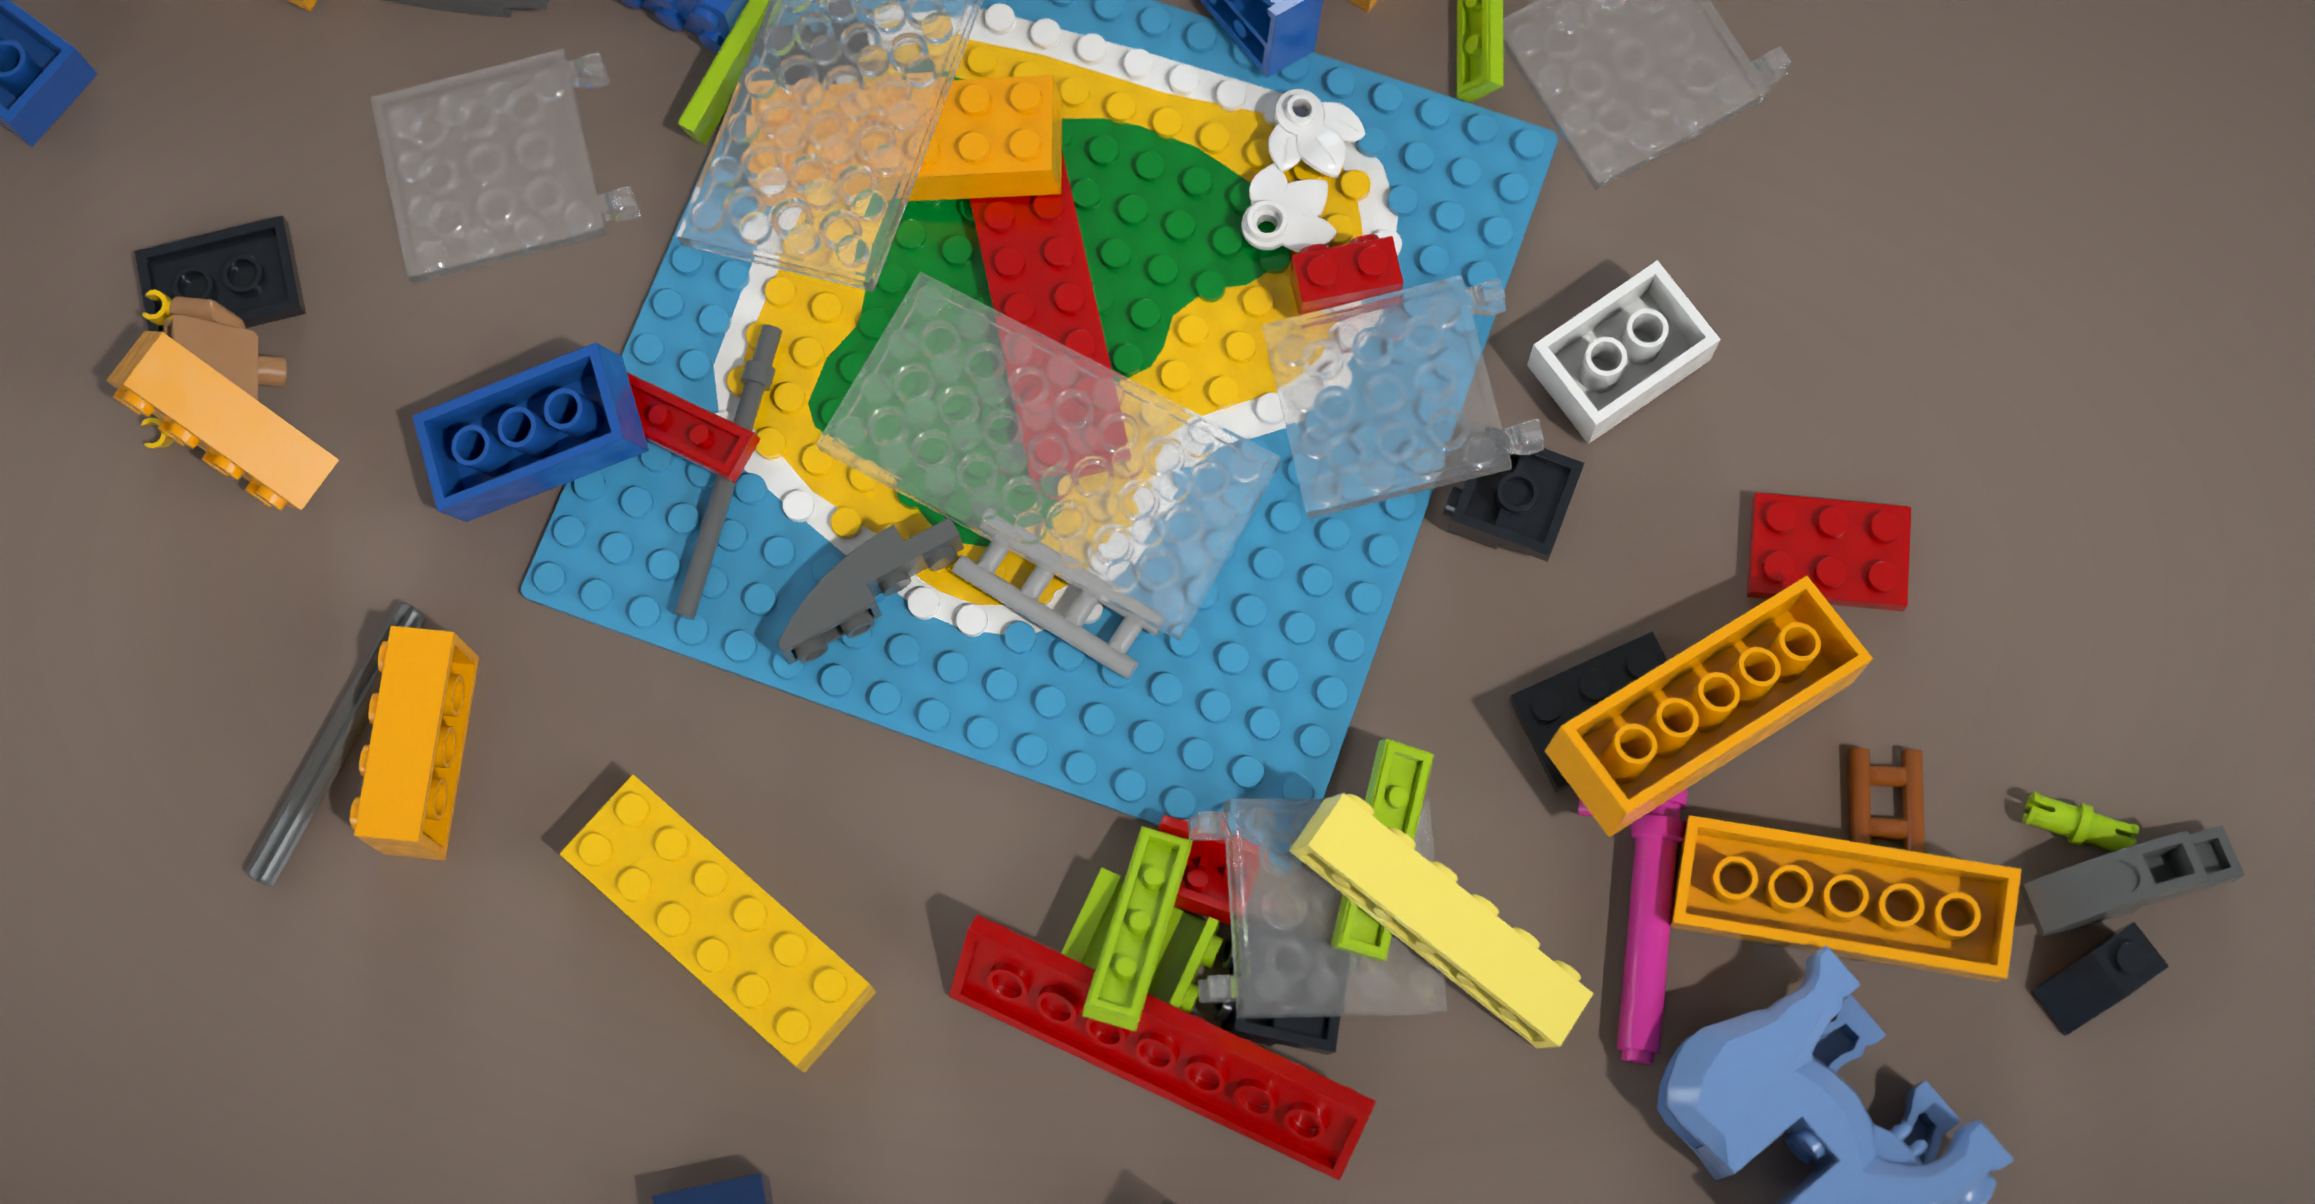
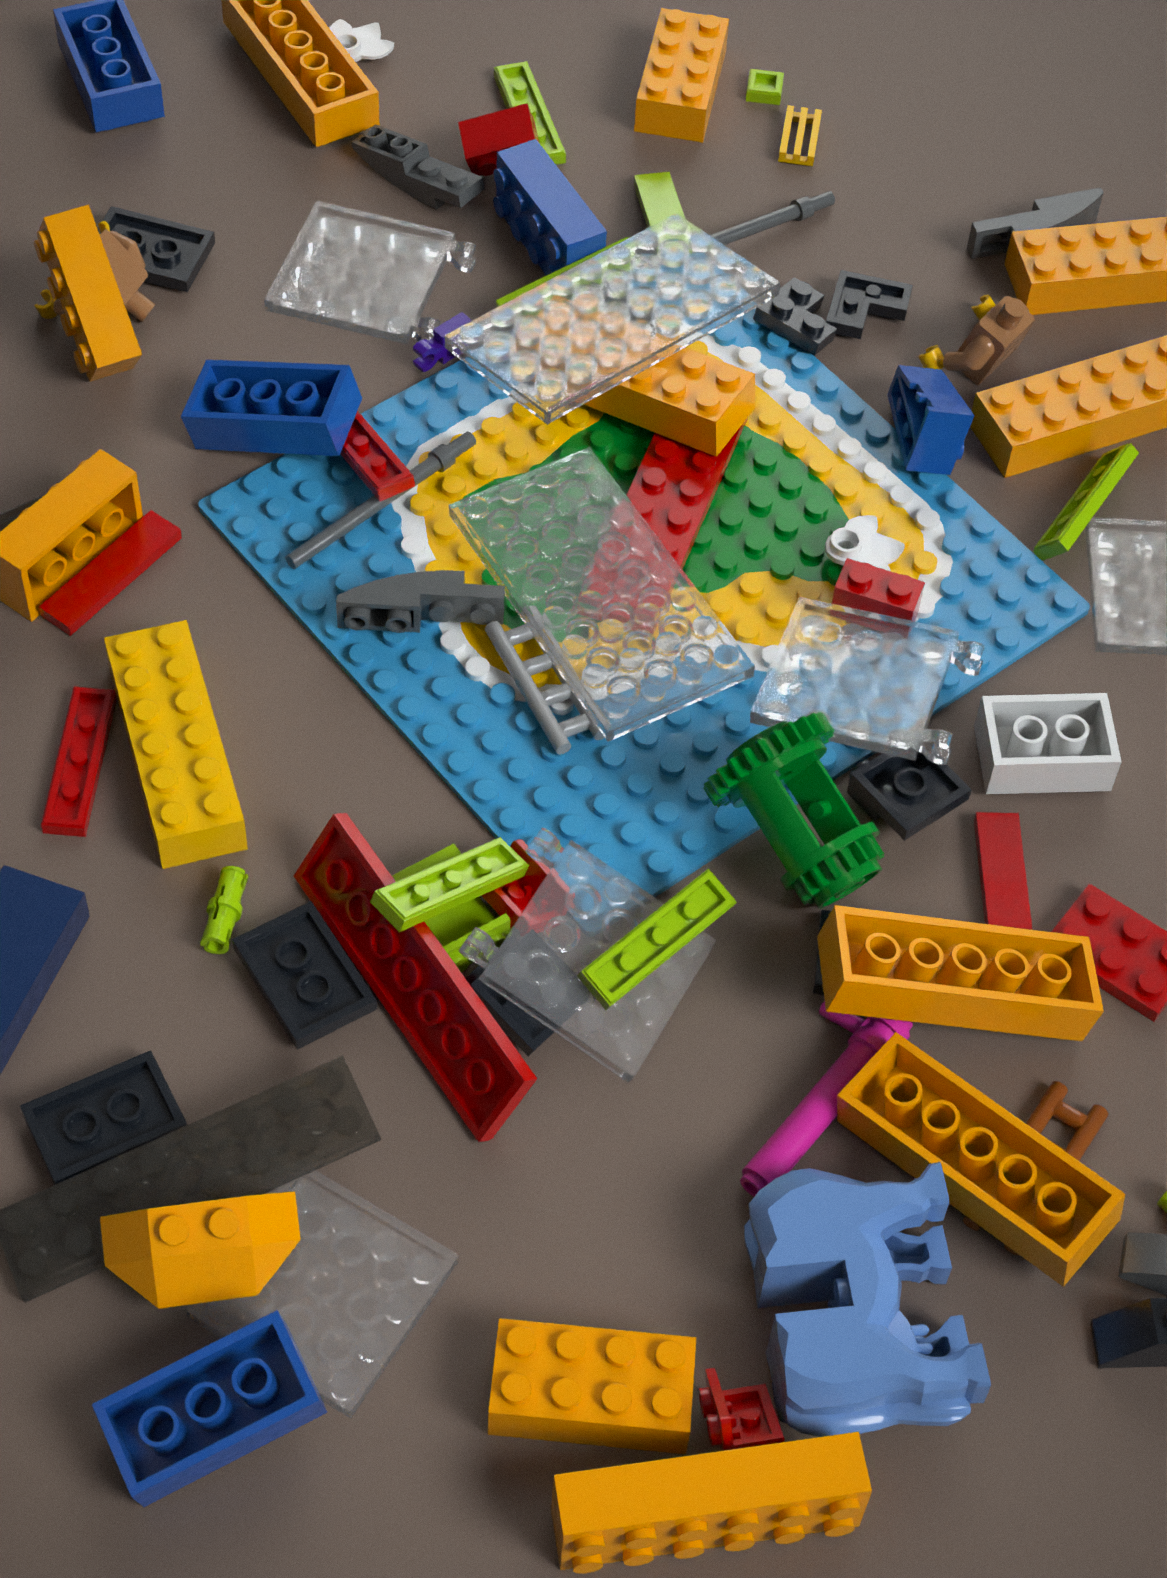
camera: 25 degrees right, 20 degrees down
(490, 746) = (110, 572): none -> red tile
(626, 1003) = (79, 762): none -> red tile
(657, 202) = (434, 348): none -> dark purple plate
(908, 1086) = (224, 910): none -> lime pin
(1042, 1108) = (304, 974): none -> black plate
(1314, 138) = (914, 512): white plate -> none
(1379, 581) = (791, 757): none -> green piece
(1442, 920) = (668, 999): light yellow brick -> none
(1670, 545) = (1002, 870): none -> red tile

